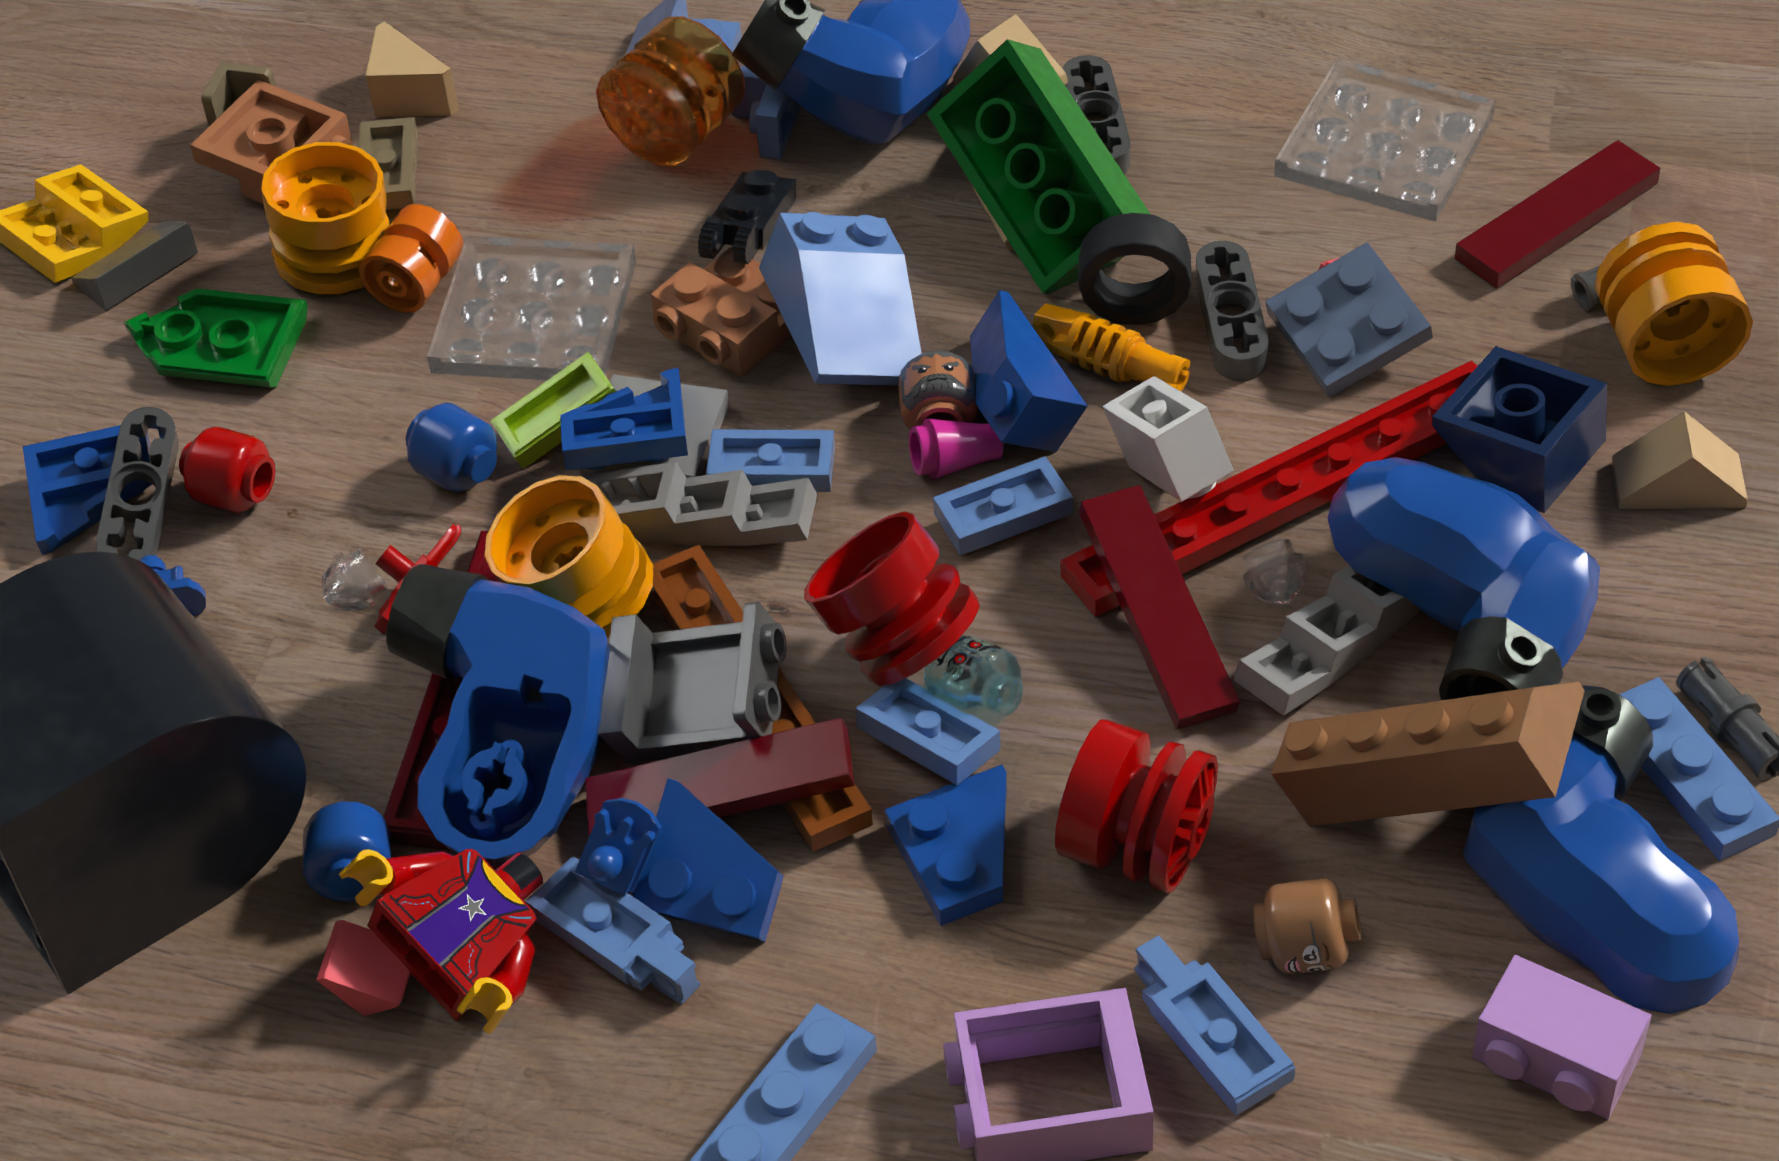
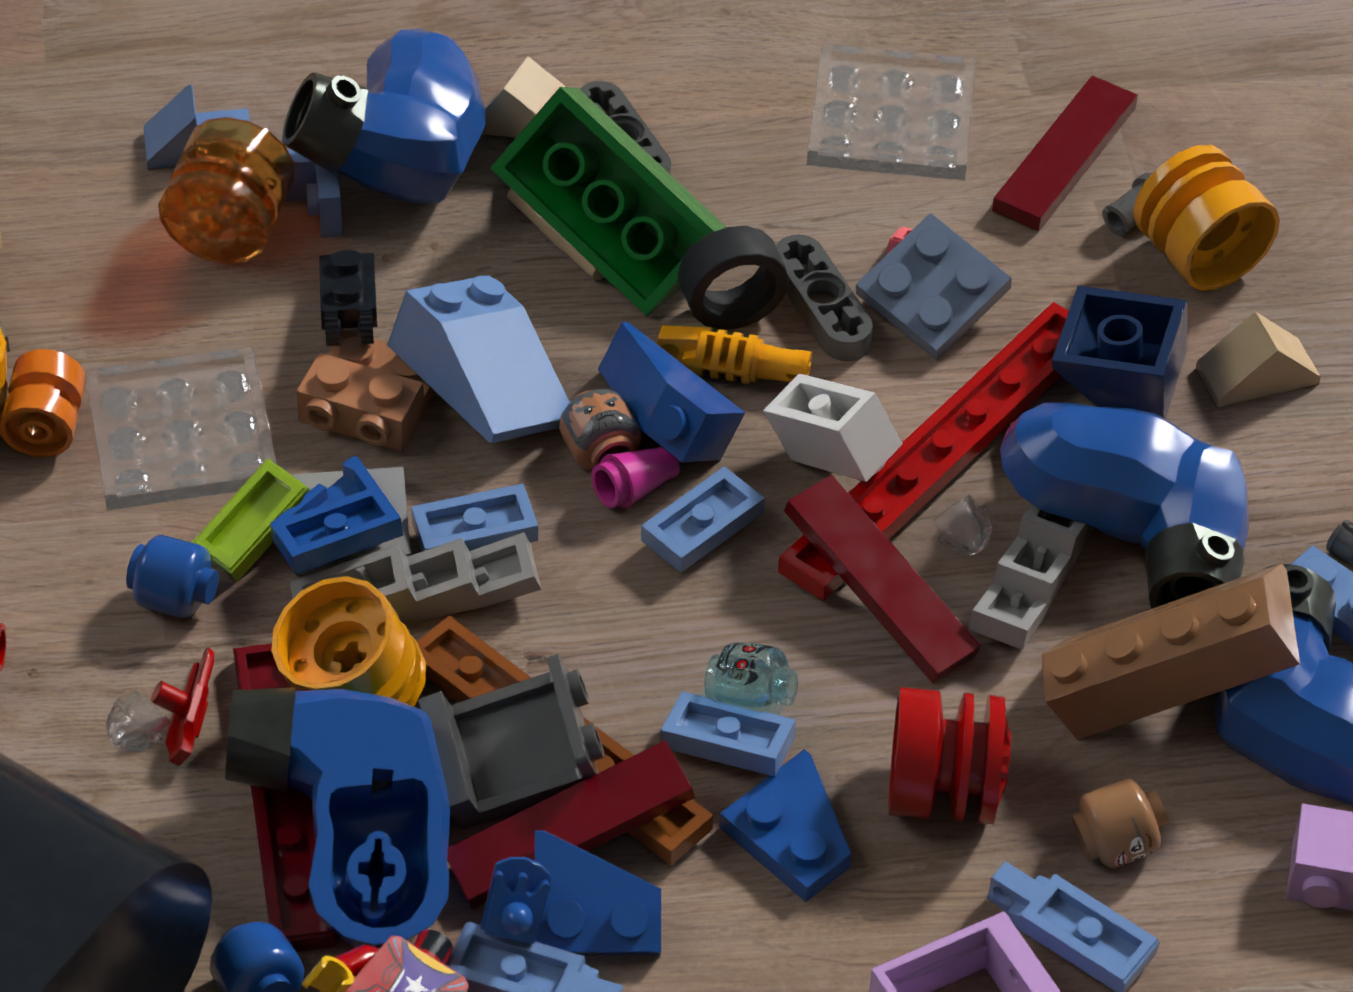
camera: 25 degrees left, 0 degrees up
(892, 599) = (661, 624): red wheel -> none

